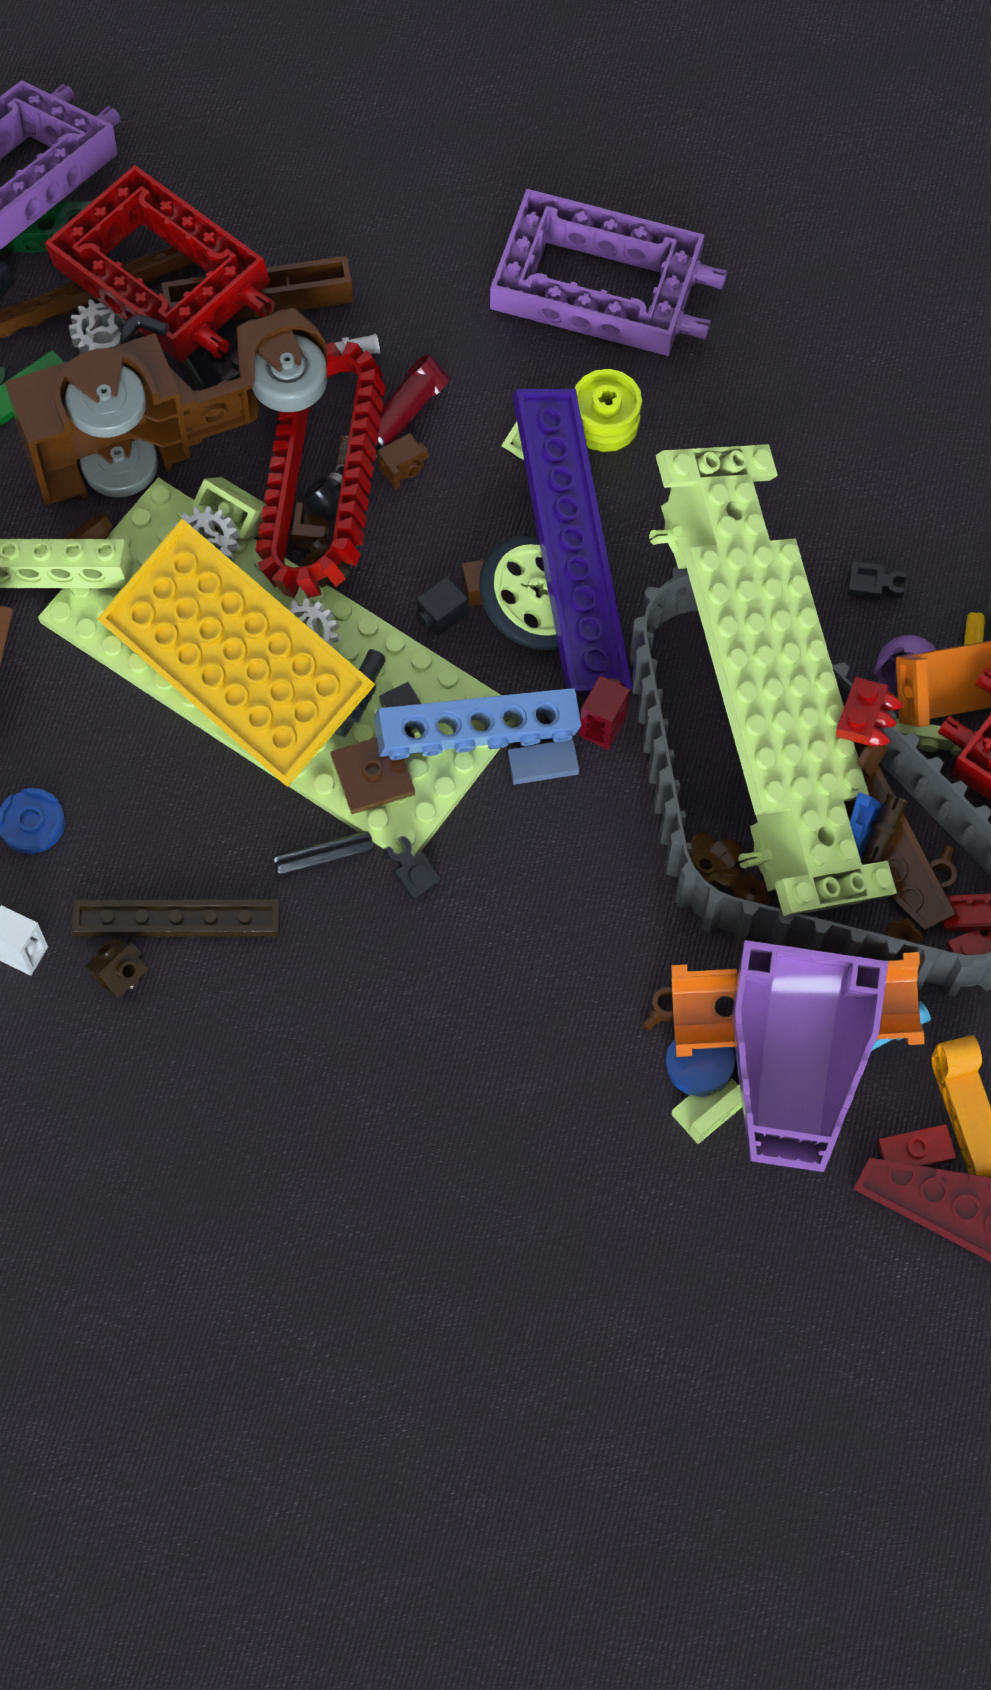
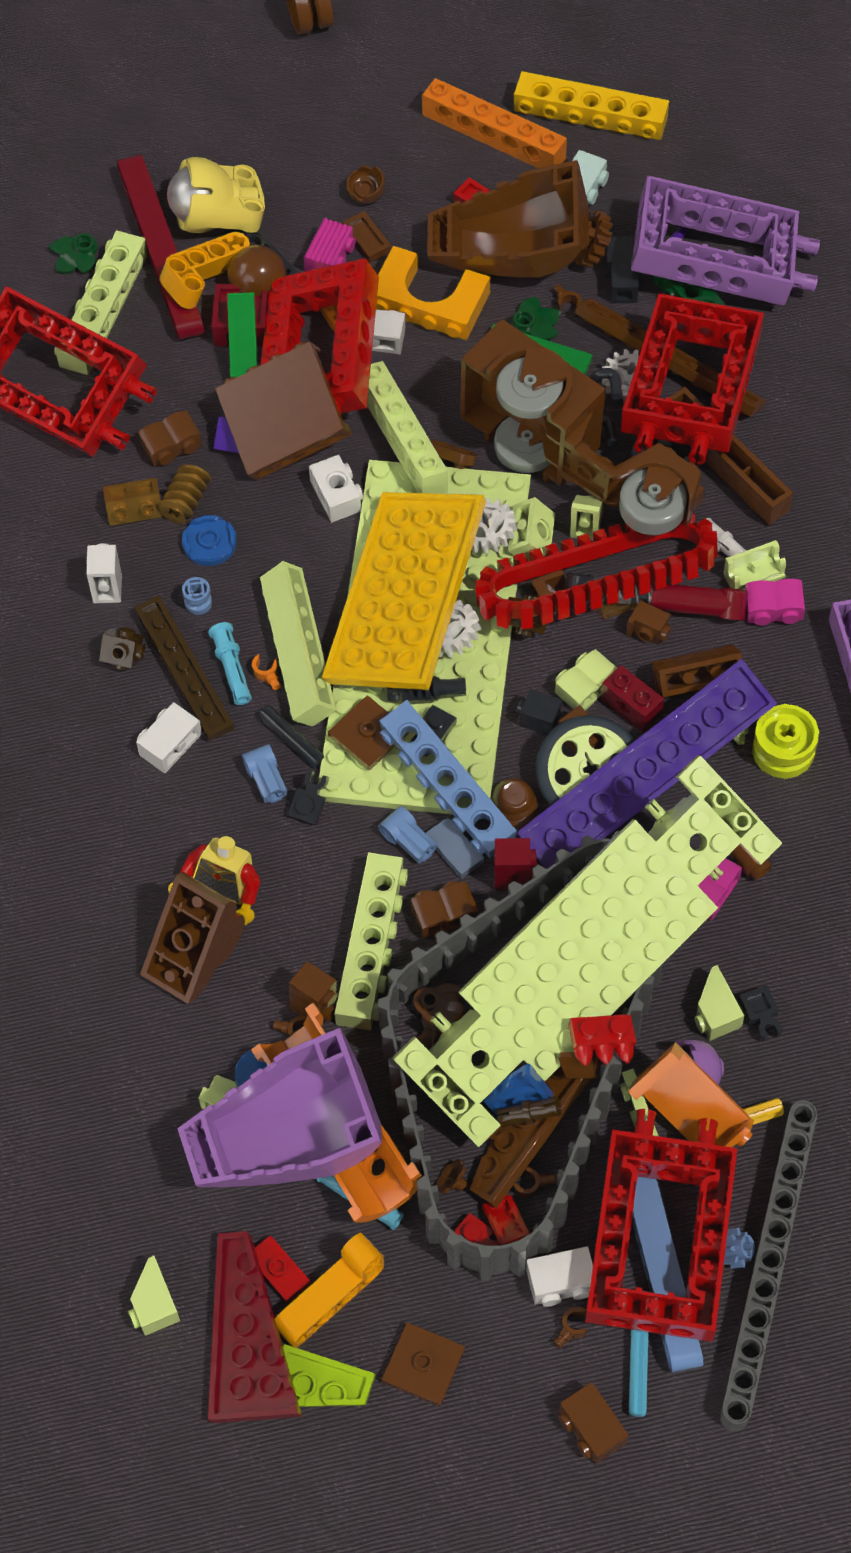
camera: 65 degrees right, 5 degrees down
(67, 675) = (336, 501): none -> white brick
(99, 870) = (197, 596): none -> medium blue wheel
(184, 866) = (228, 653): none -> medium azure pin
(222, 791) = (297, 644): none -> yellowish green brick
(239, 839) = (269, 675): none -> orange piece
(245, 449) = (585, 516): none -> yellowish green slope
(254, 972) = (168, 737): none -> white brick
(344, 896) = (263, 768): none -> medium blue piece
(397, 338) = (755, 565): none -> yellowish green hinge
(431, 547) = (584, 681): none -> yellowish green brick
(447, 338) = (775, 601): none -> dark pink brick
(450, 990) = (226, 871): none -> torso
(478, 516) = (632, 698): none -> dark red brick
(484, 443) = (692, 670): none -> reddish brown brick
(497, 798) = (403, 830): none -> medium blue piece
(519, 1056) = (192, 938): none -> reddish brown brick
(523, 676) = (515, 801): none -> reddish brown hat
(610, 802) = (443, 908): none -> reddish brown brick
(646, 967) = (313, 986): none -> reddish brown brick
(668, 945) = (378, 871): none -> yellowish green brick
(849, 614) = (717, 1008): none -> yellowish green slope
(893, 1286) = (152, 1301): none -> yellowish green slope

